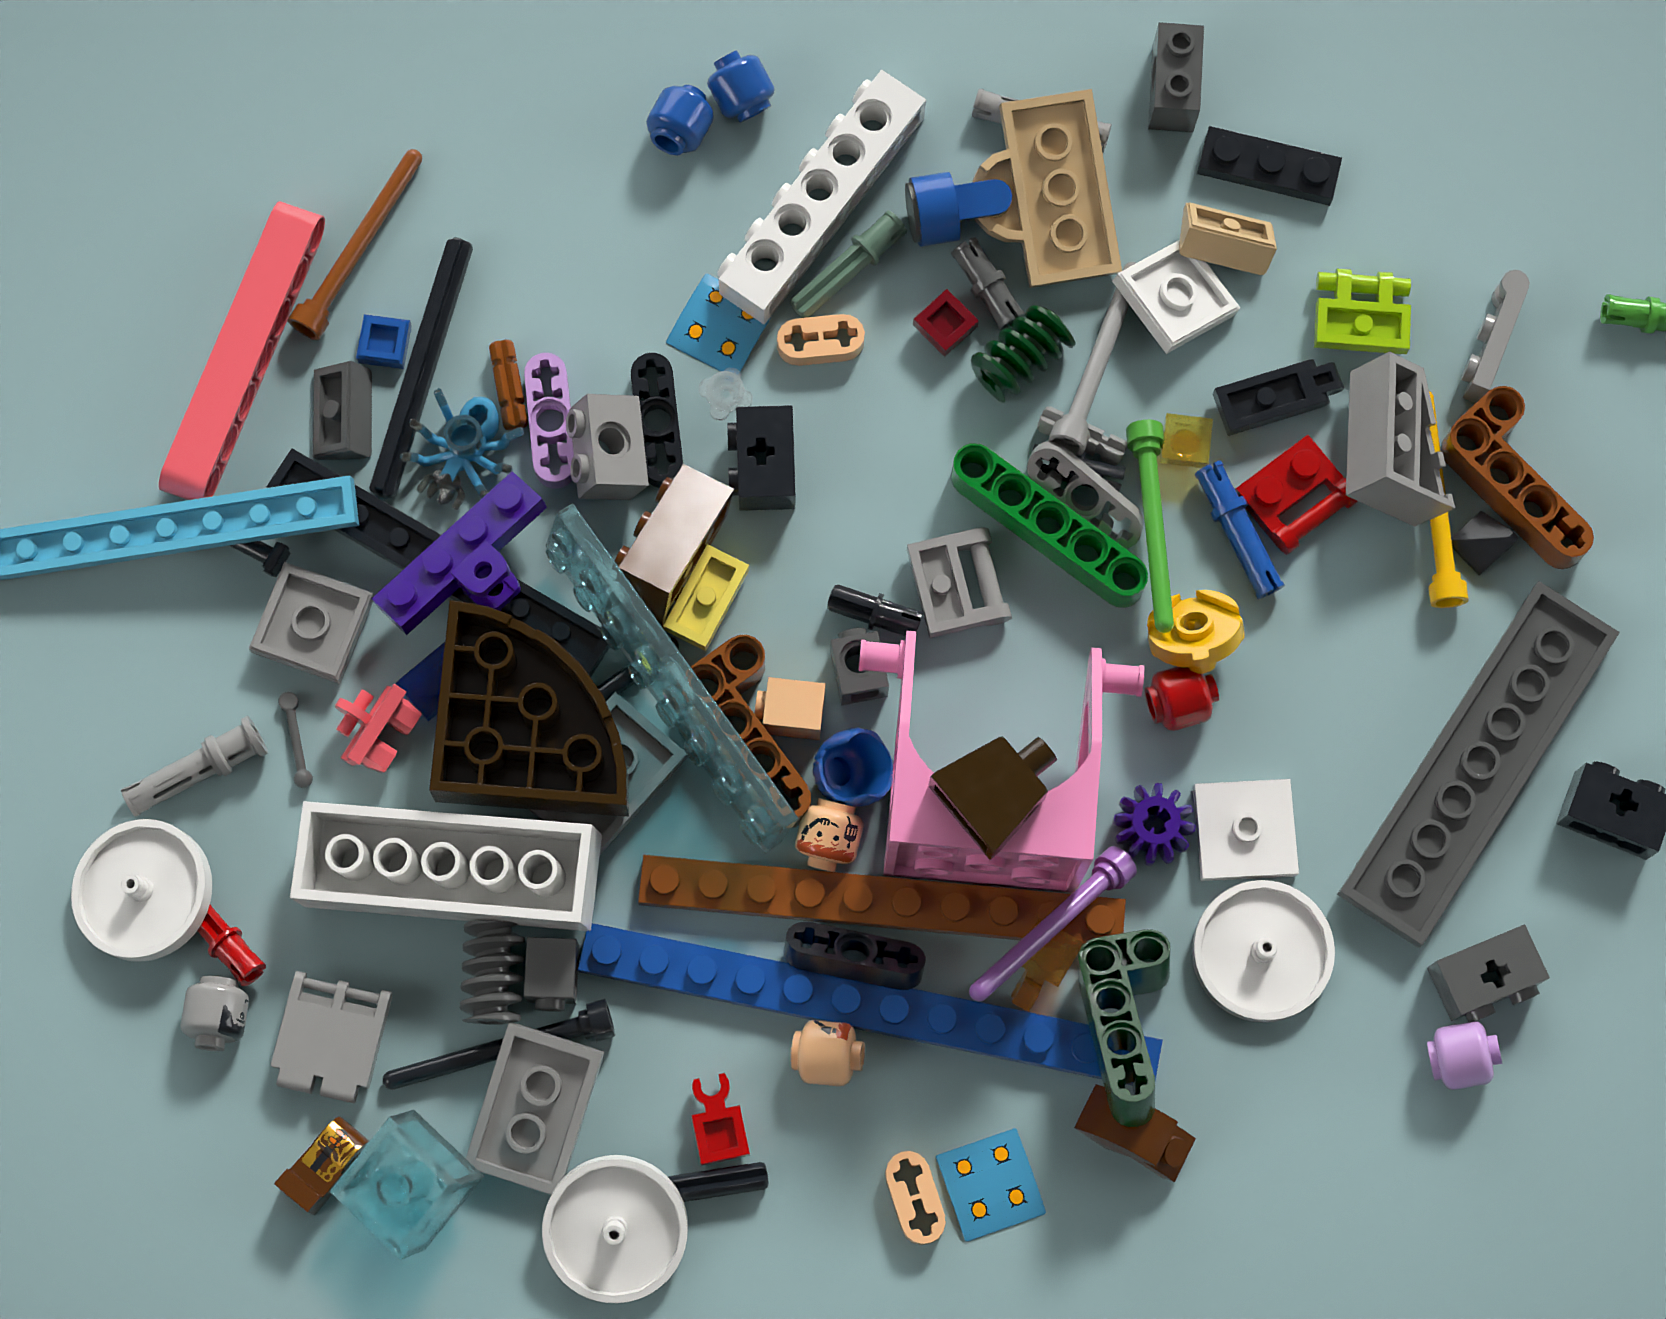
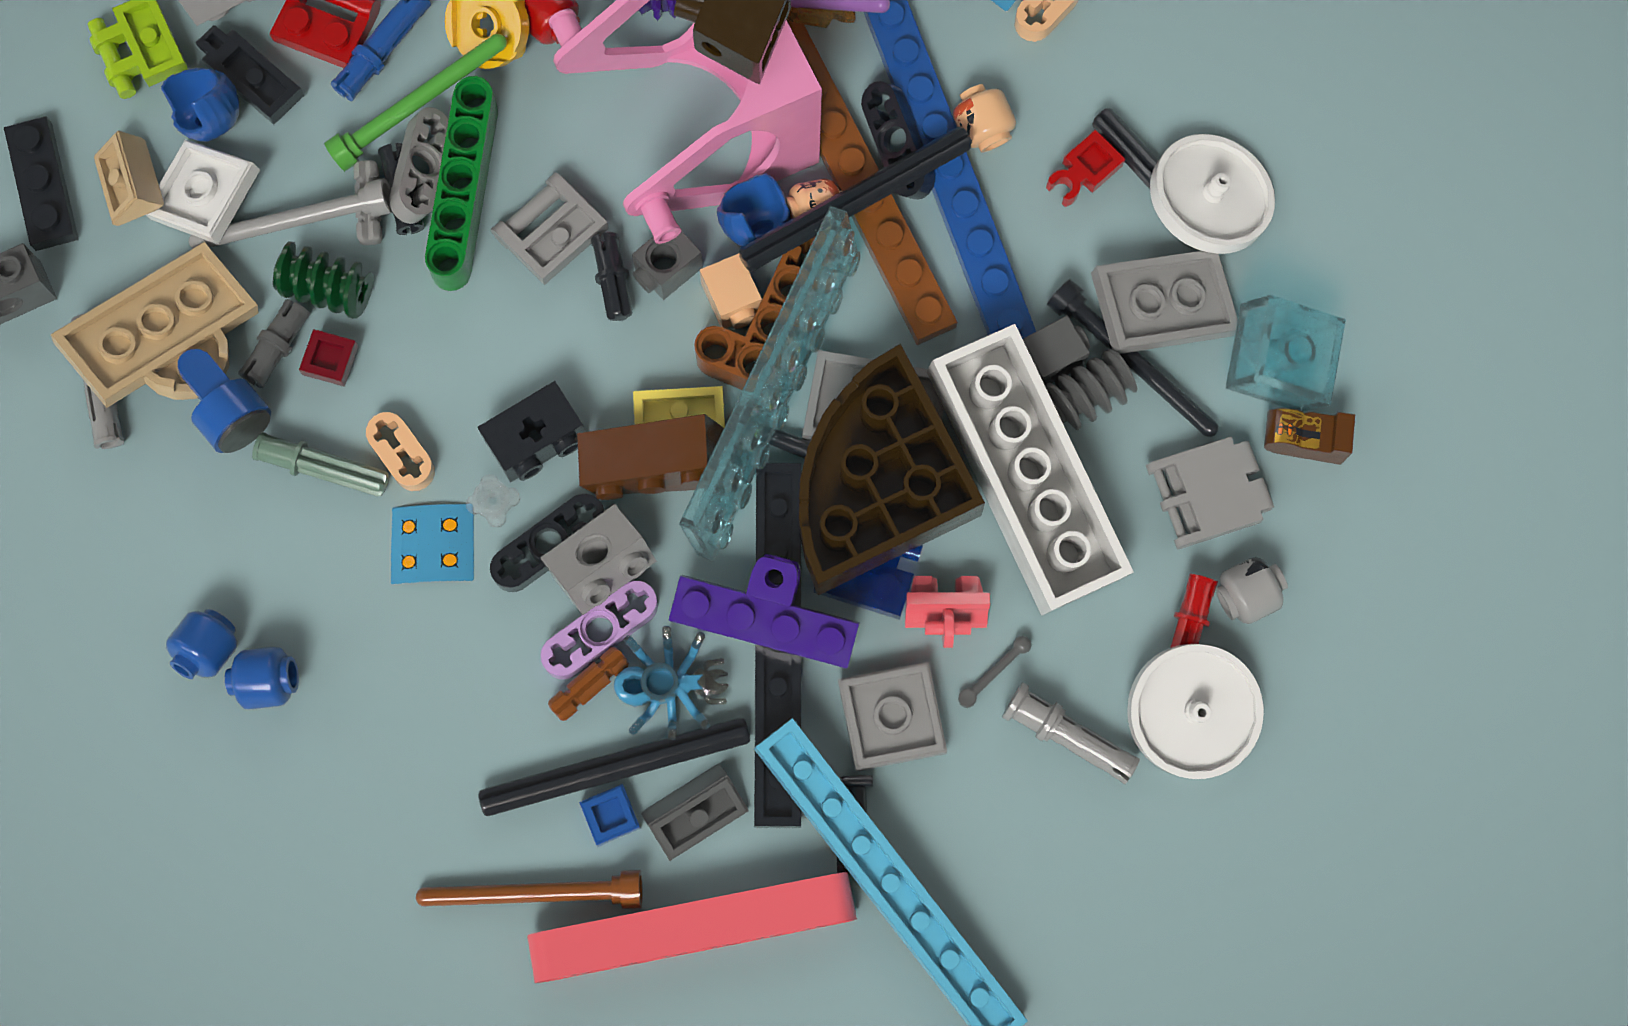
camera: 120 degrees left, 0 degrees up
(764, 291) = (155, 497): white brick -> none
(806, 866) = (856, 197): none -> black axle
(1186, 440) = (326, 118): clear yellow plate -> none
(1261, 335) = (202, 103): none -> blue hair

